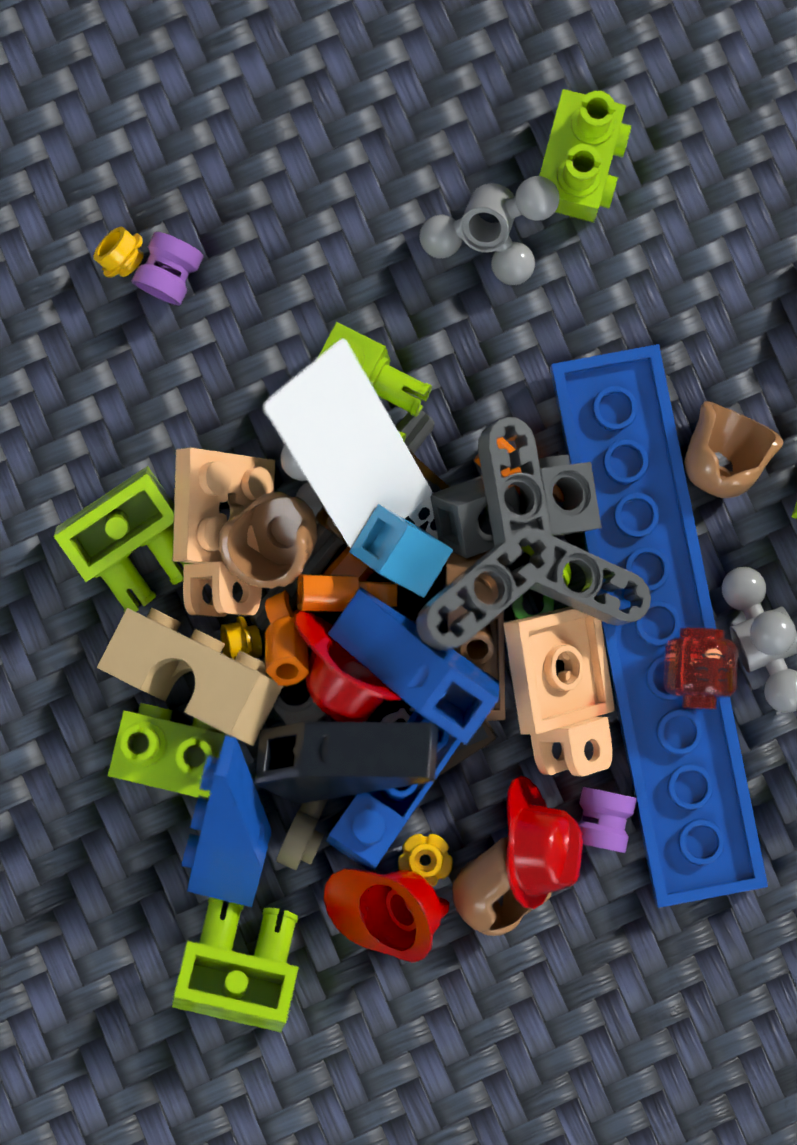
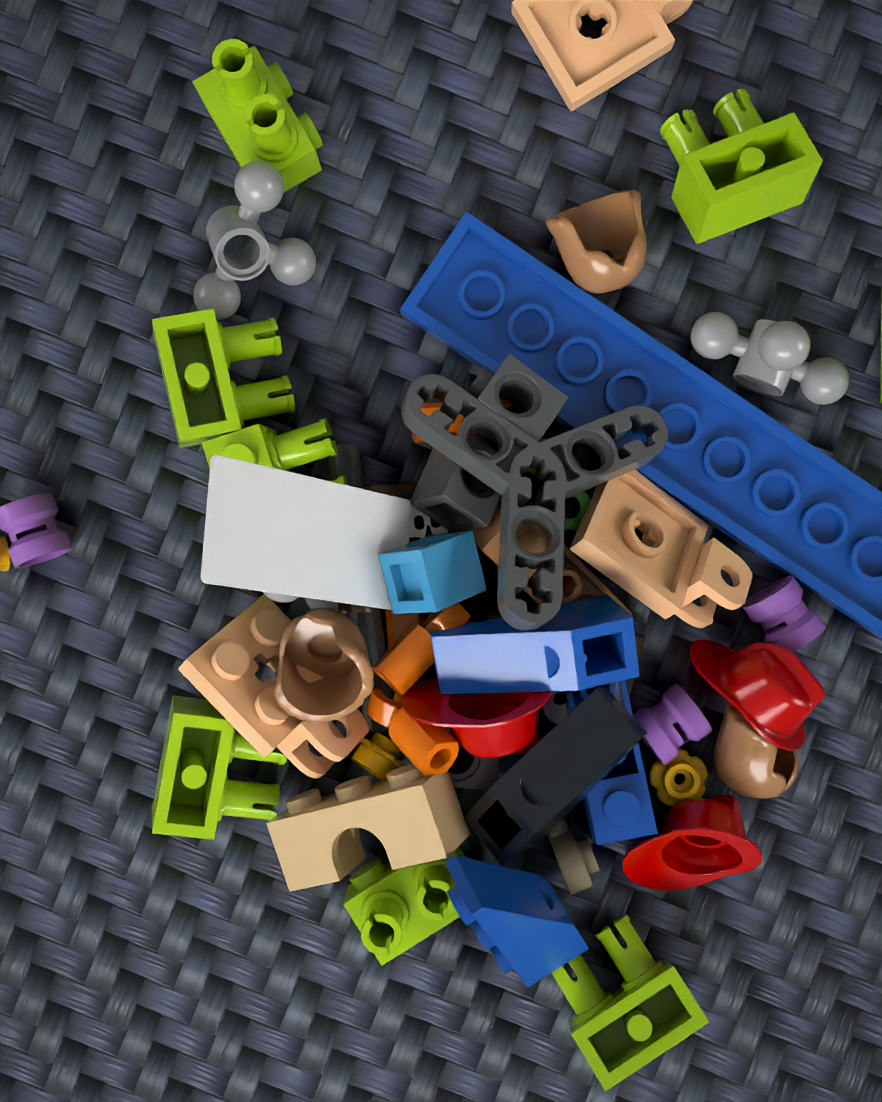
camera: 40 degrees left, 5 degrees up
(374, 277) = (195, 367): none -> lime brick
(442, 814) = (672, 723): none -> medium lavender wheel
(700, 667) = (751, 429): clear red head -> none

